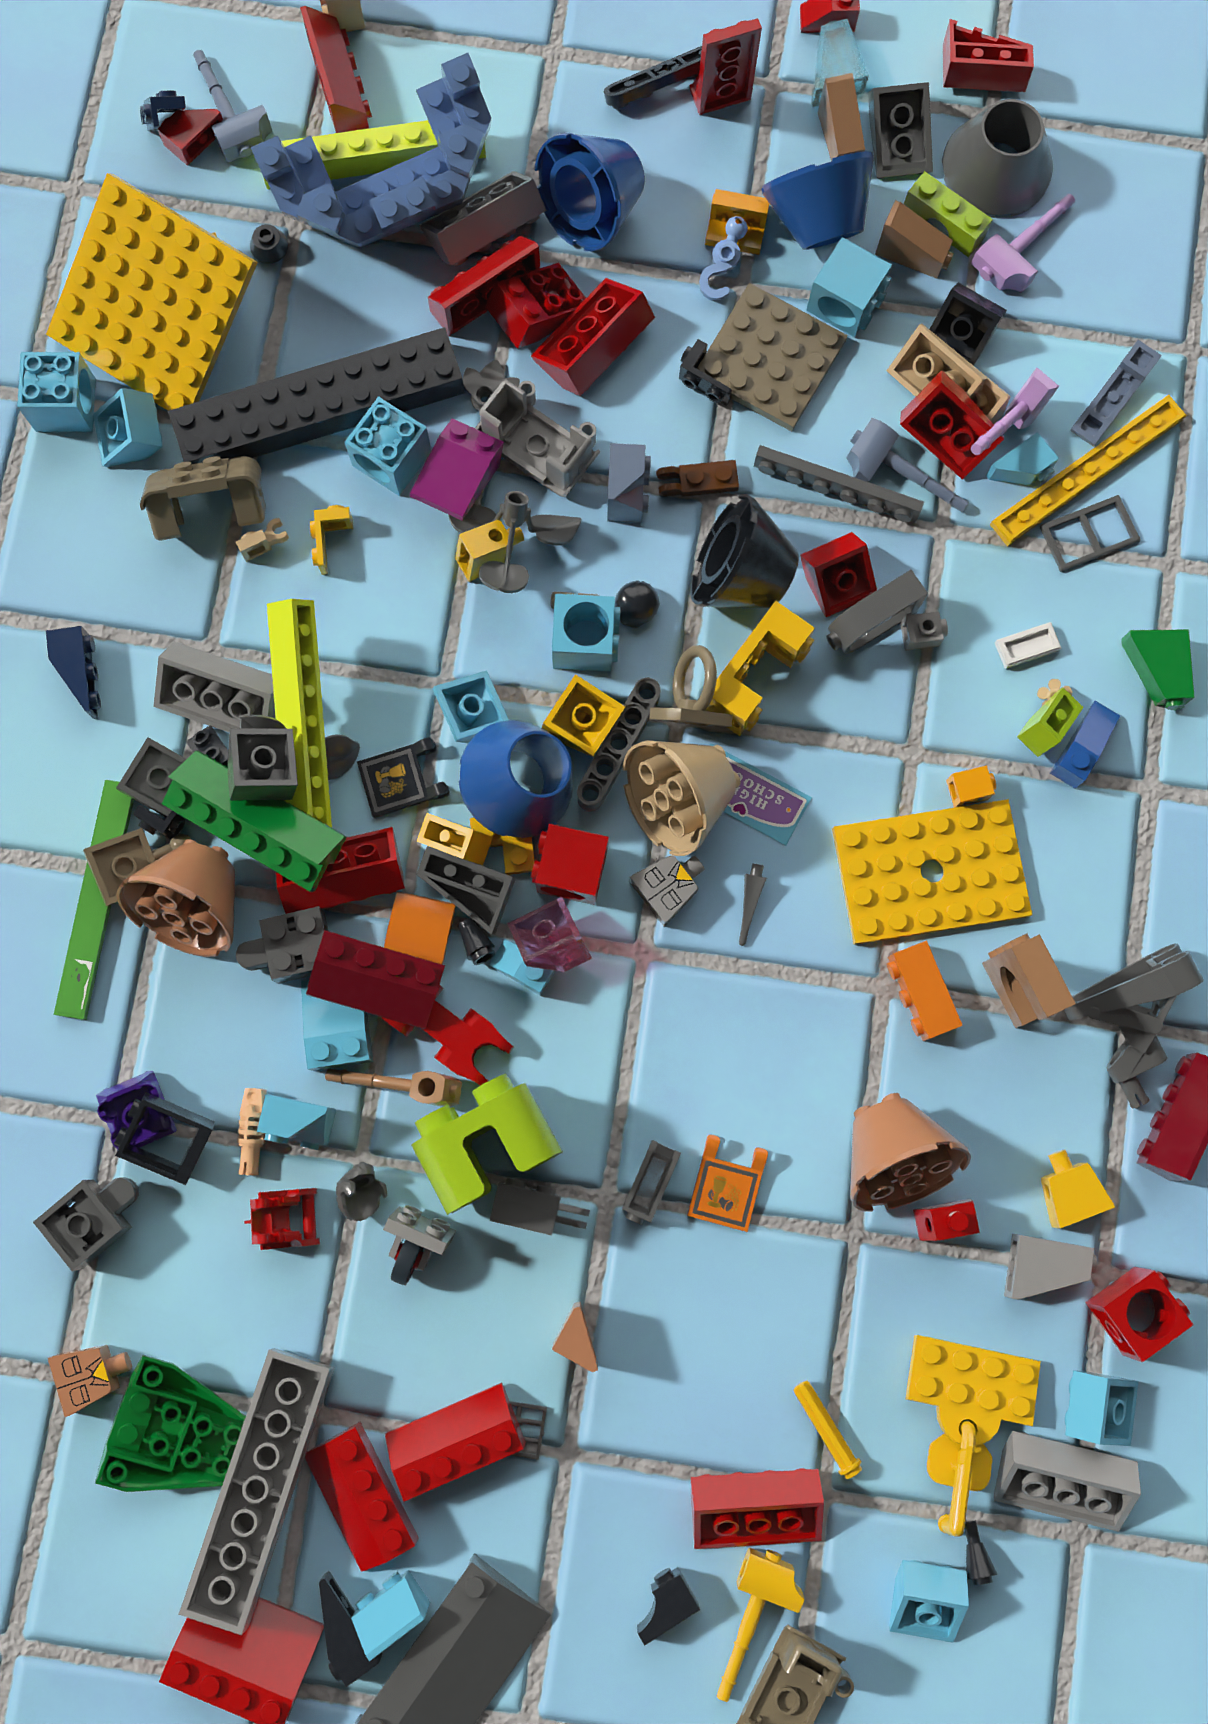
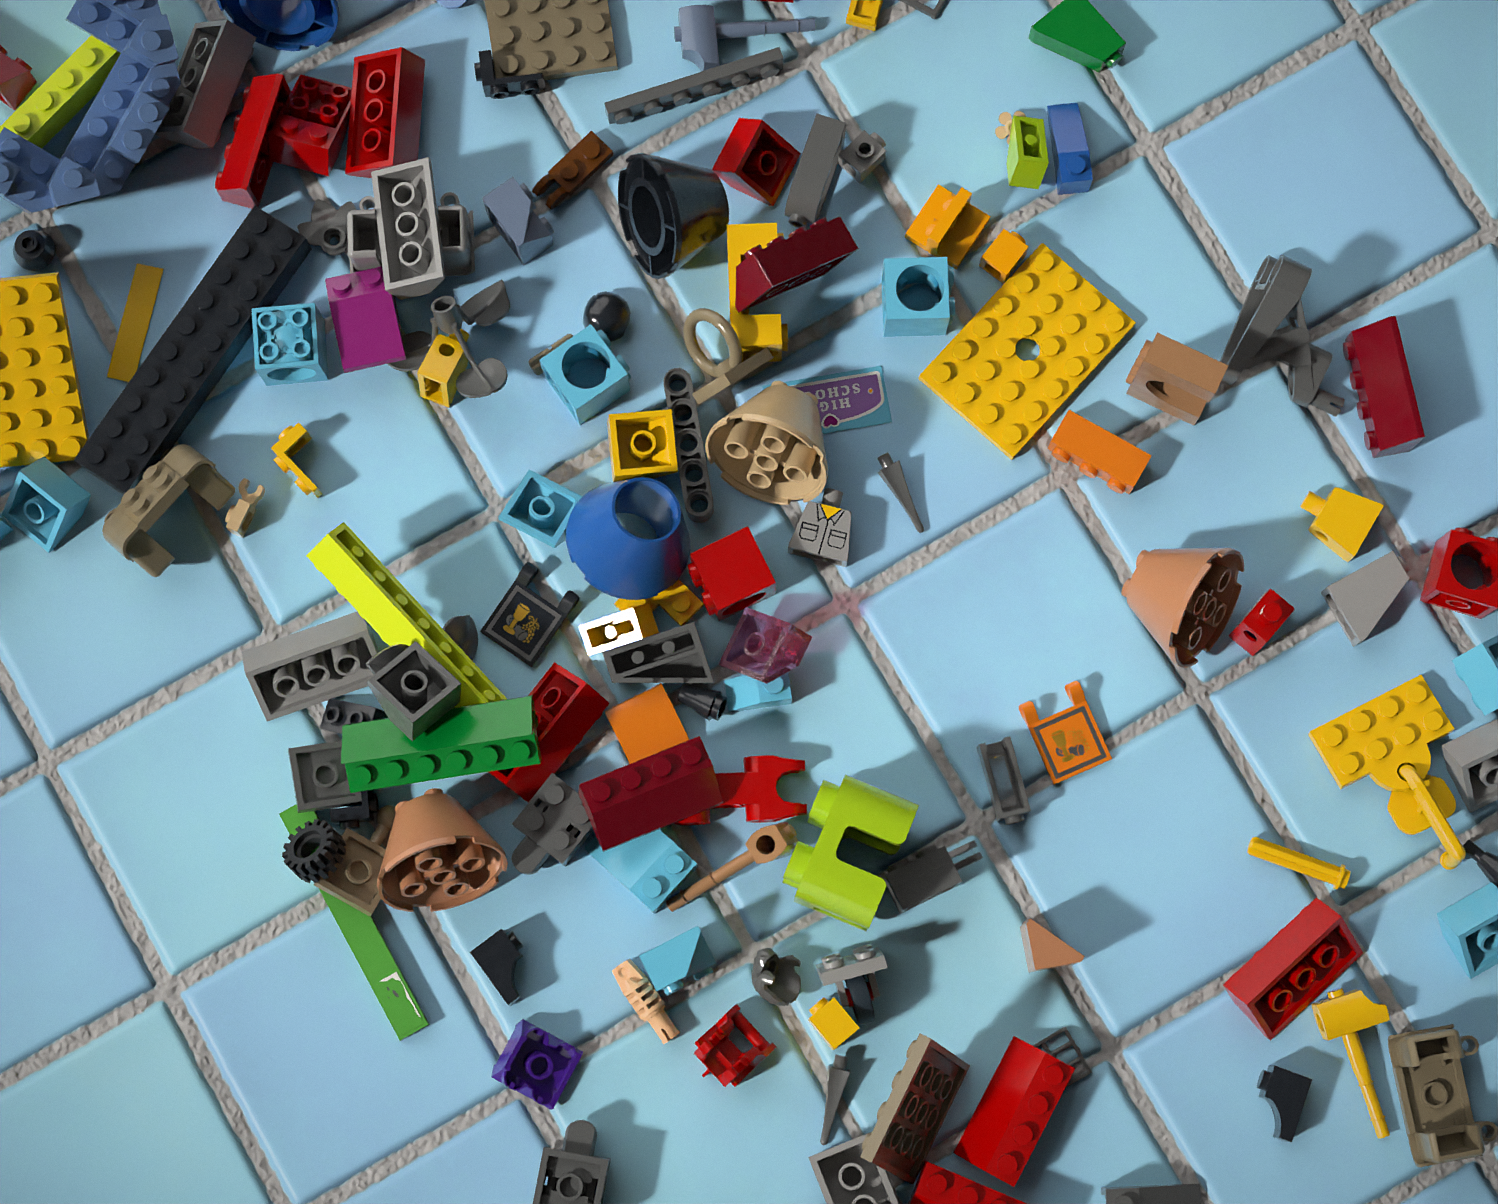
camera: 35 degrees left, 0 degrees up
(71, 656) = (164, 736): dark blue slope -> none
(101, 826) = (323, 860): none -> black tyre
(152, 1162) = (612, 1056): black window -> none
(168, 1015) = (498, 960): none -> black arch
(298, 348) = (135, 322): none -> yellow sticker
(341, 1307) = (836, 1081): none -> dark grey piece
(370, 1261) = (832, 1022): none -> yellow brick
(373, 1380) = (914, 1109): none -> dark tan plate
(537, 425) = (408, 228): none -> light grey slope
(801, 665) = (791, 261): none -> dark red slope
(882, 739) = (930, 271): none -> medium azure brick
(946, 732) = (948, 225): none -> light orange bracket
(1027, 645) = (957, 102): white tile -> none

